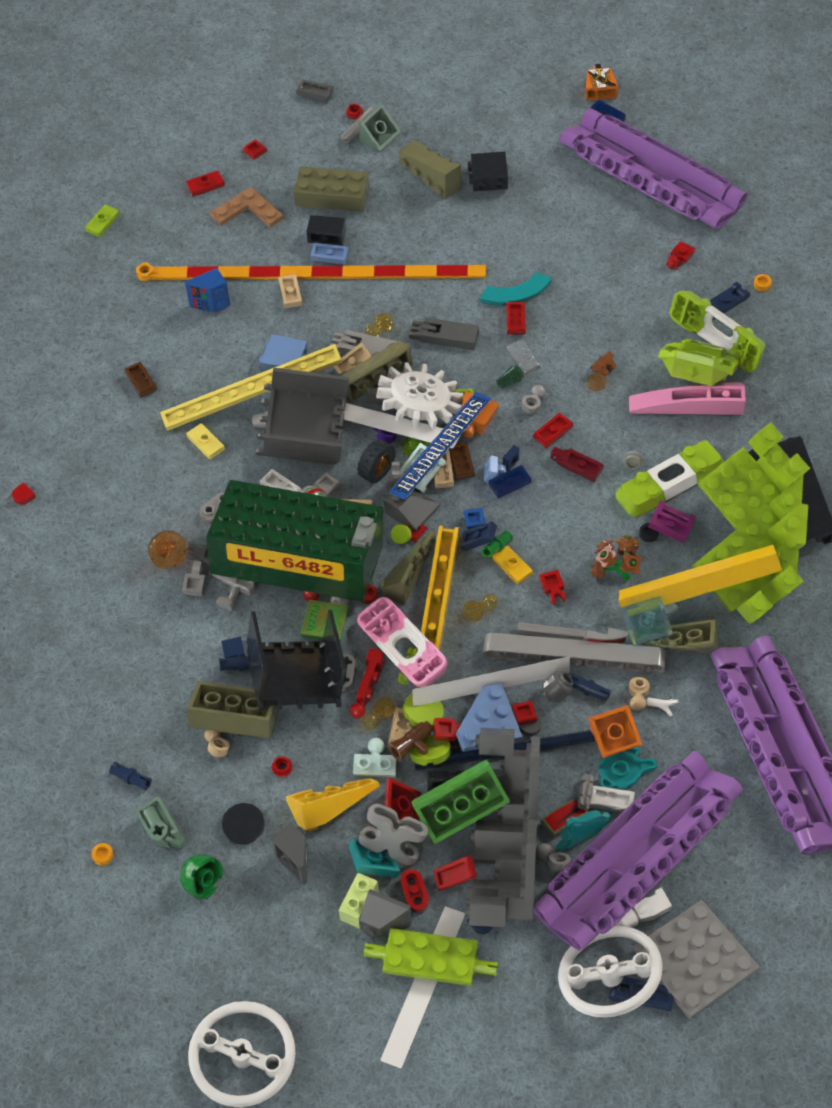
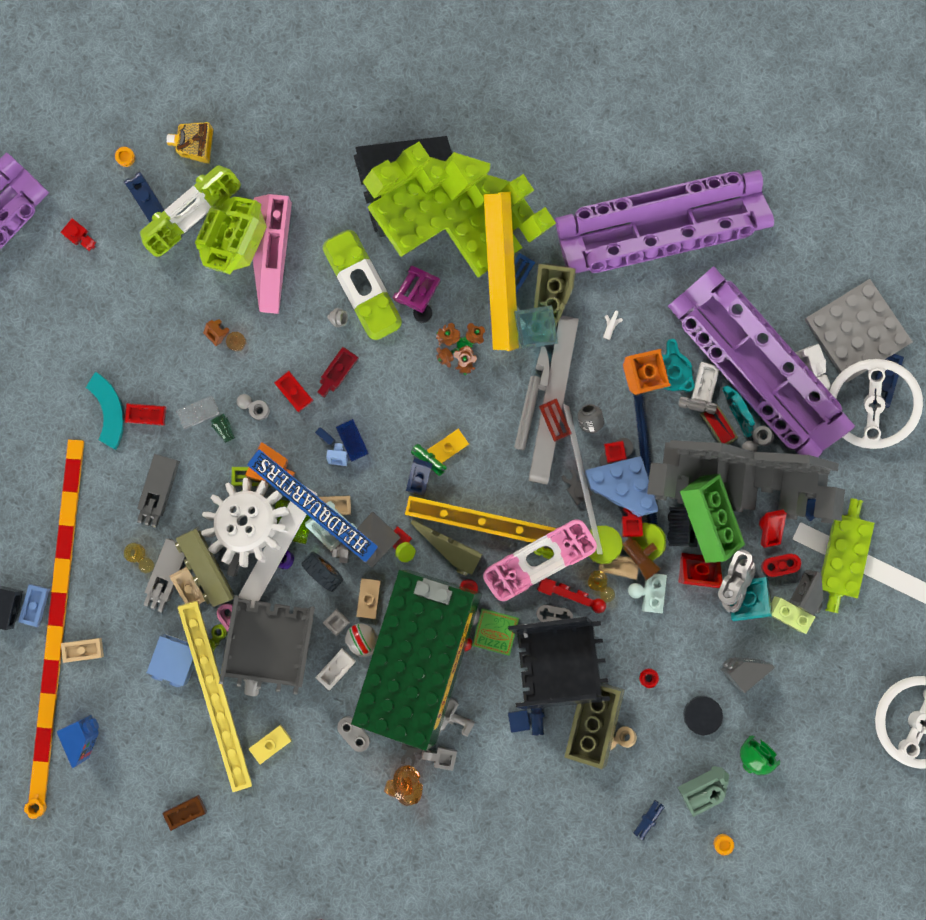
camera: 85 degrees left, 30 degrees up
(318, 808) = (691, 639): yellow wedge -> none
(461, 461) = (324, 485): reddish brown plate -> none
(474, 518) = (393, 479): blue plate -> none
(488, 602) = (490, 473): clear yellow plate -> none
(552, 584) = (474, 411): red plate -> none
(553, 650) = (562, 435): none -> clear red tile
(590, 688) = (589, 389): dark blue pin -> none
(638, 701) = (609, 347): tan plate -> none
(703, 615) = (525, 260): none -> blue tile
(788, 330) = (193, 141): none -> torso

